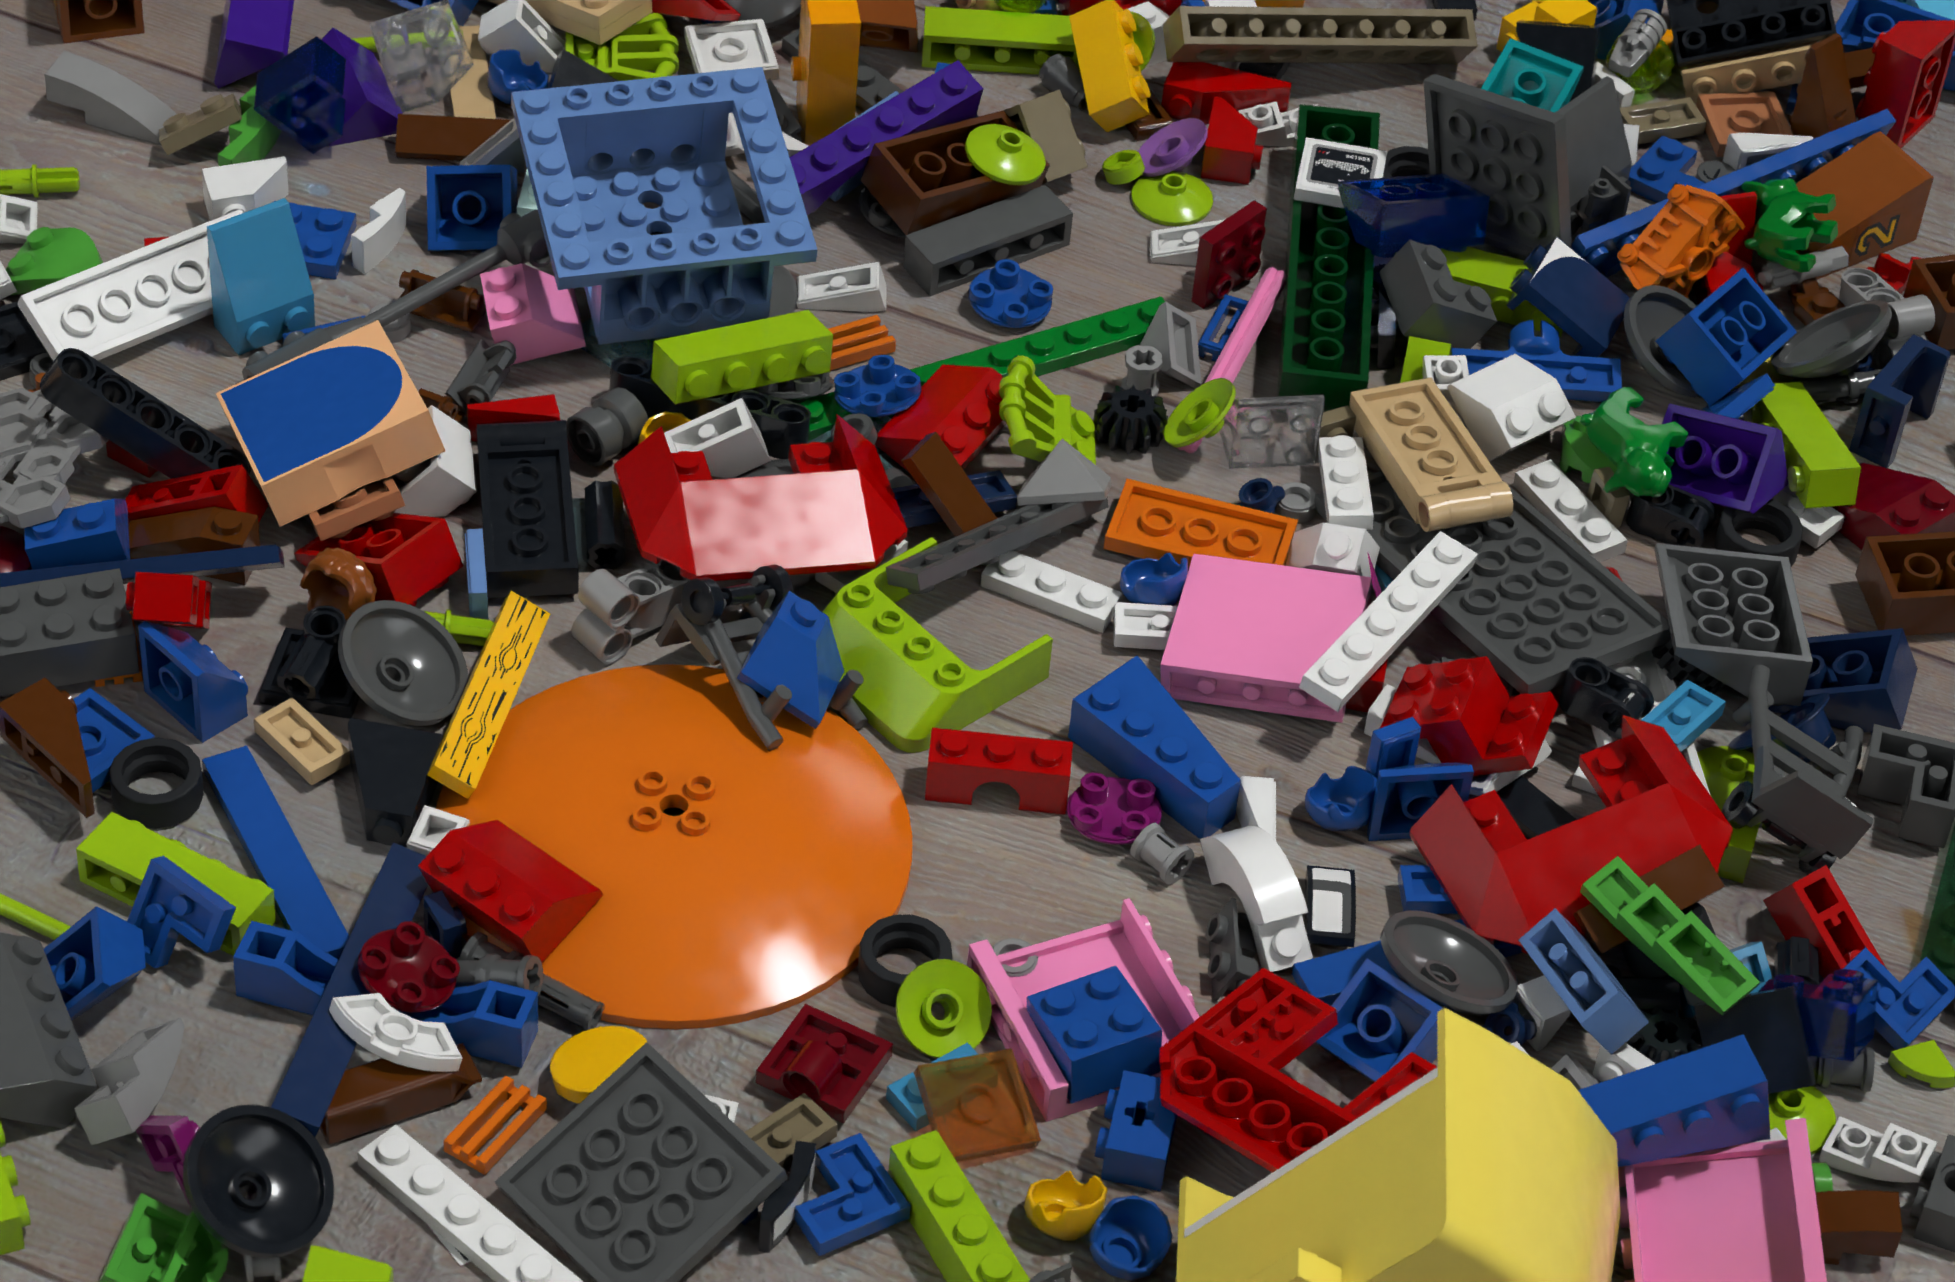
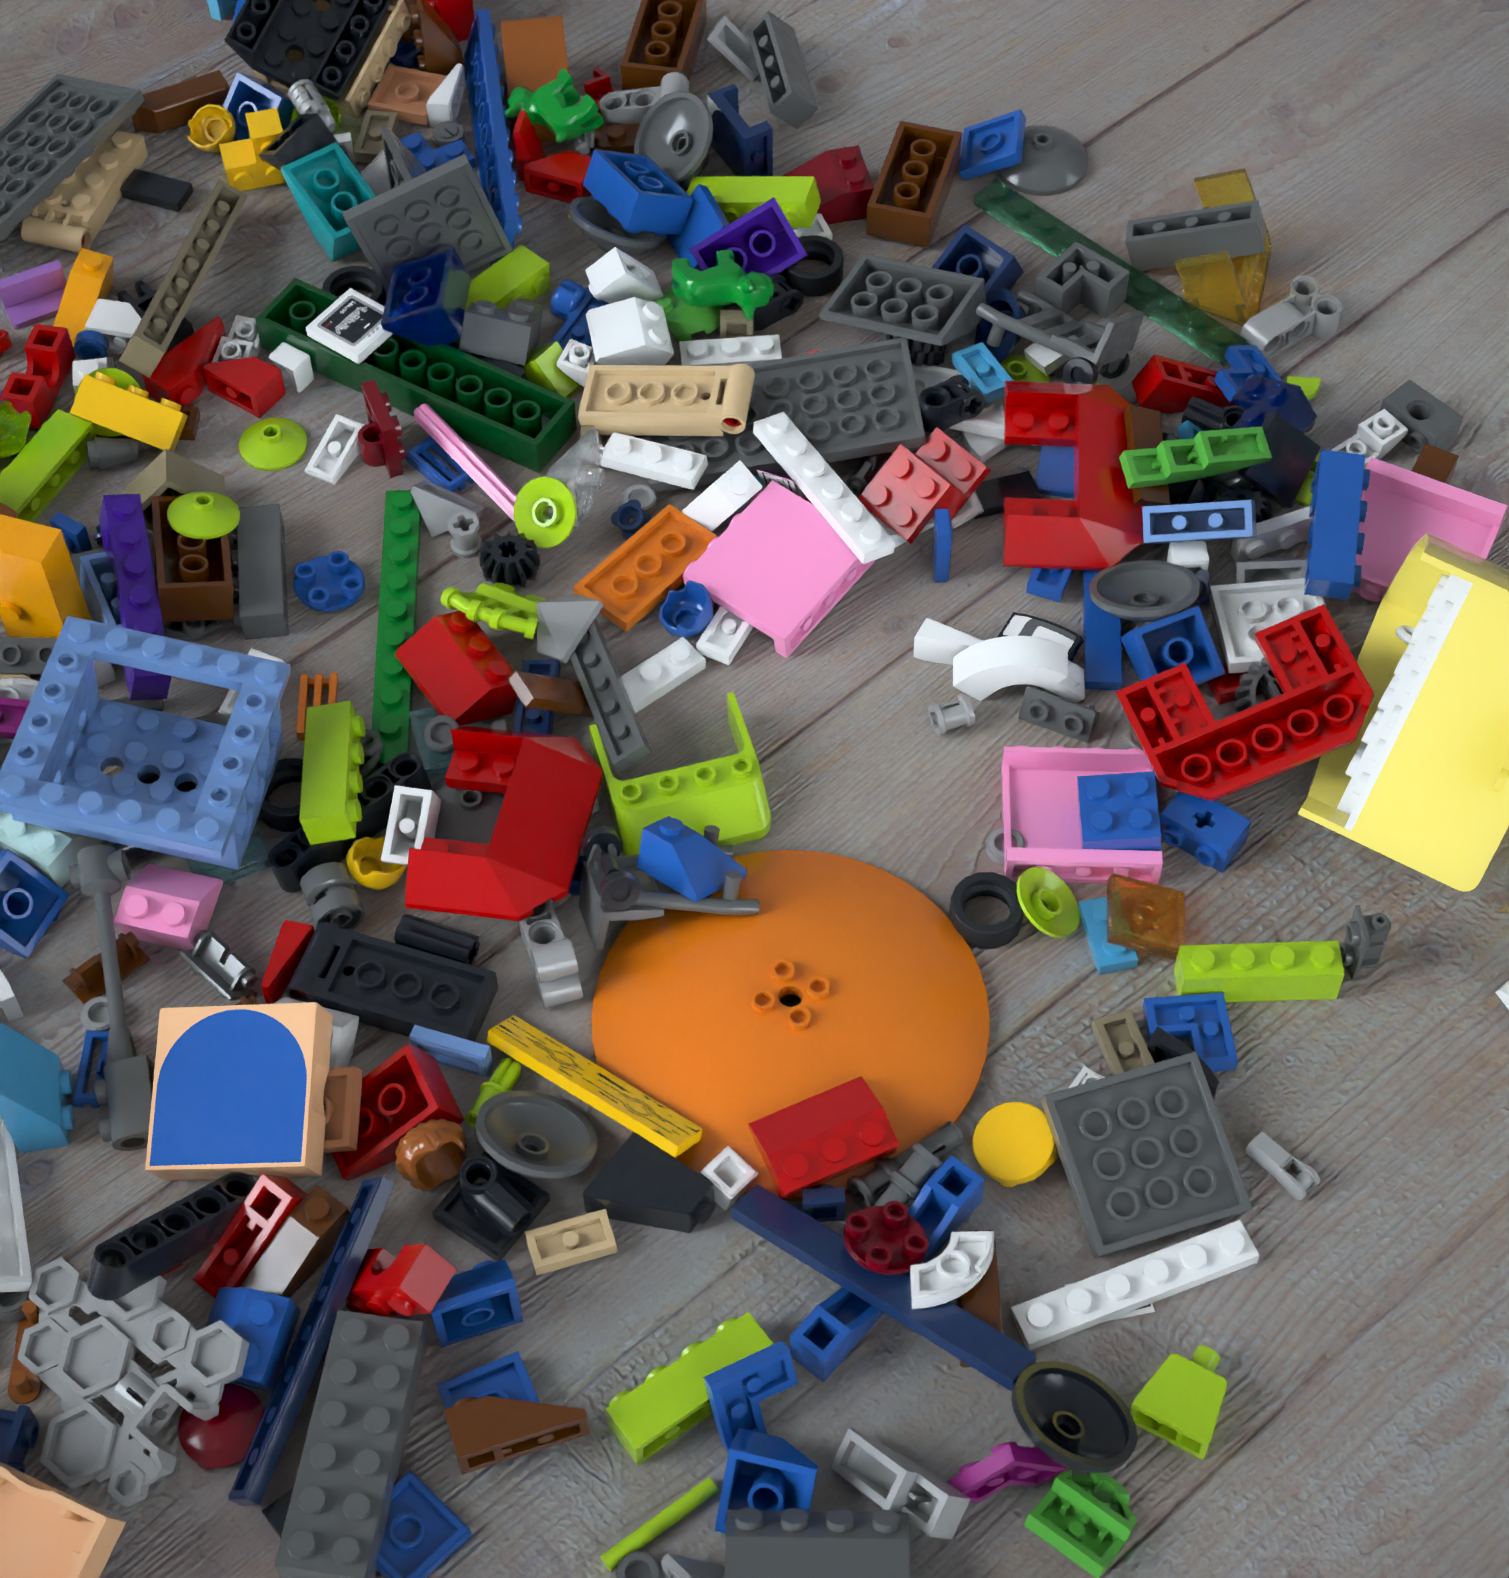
camera: 60 degrees left, 10 degrees up
(156, 756) = (560, 1337): black tyre -> none
(274, 849) = (682, 1303): blue tile -> none
(503, 1101) = (1013, 1210): orange tile -> none
(825, 1061) = (1062, 998): dark red plate -> none
(877, 388) = (402, 700): blue dish -> none
(968, 759) = (819, 793): red arch -> none
(1065, 1206) = (1256, 896): yellow hair -> none
(1113, 808) = (893, 727): magenta dish -> none
(1123, 167) = (229, 457): lime tile -> none
(1130, 1238) = (1301, 872): blue hair -> none
(1145, 734) = (853, 676): blue wedge -> none
(1173, 146) = (220, 418): medium lavender dish -> none
(1275, 168) = (296, 364): none -> white slope
(1342, 802) = (952, 588): blue hair -> none
(1408, 792) = (975, 541): blue slope -> none
(1571, 296) = (543, 255): dark blue panel -> none
(1583, 366) = (622, 277): none -> white slope
(1681, 240) = (542, 176): orange piece -> none

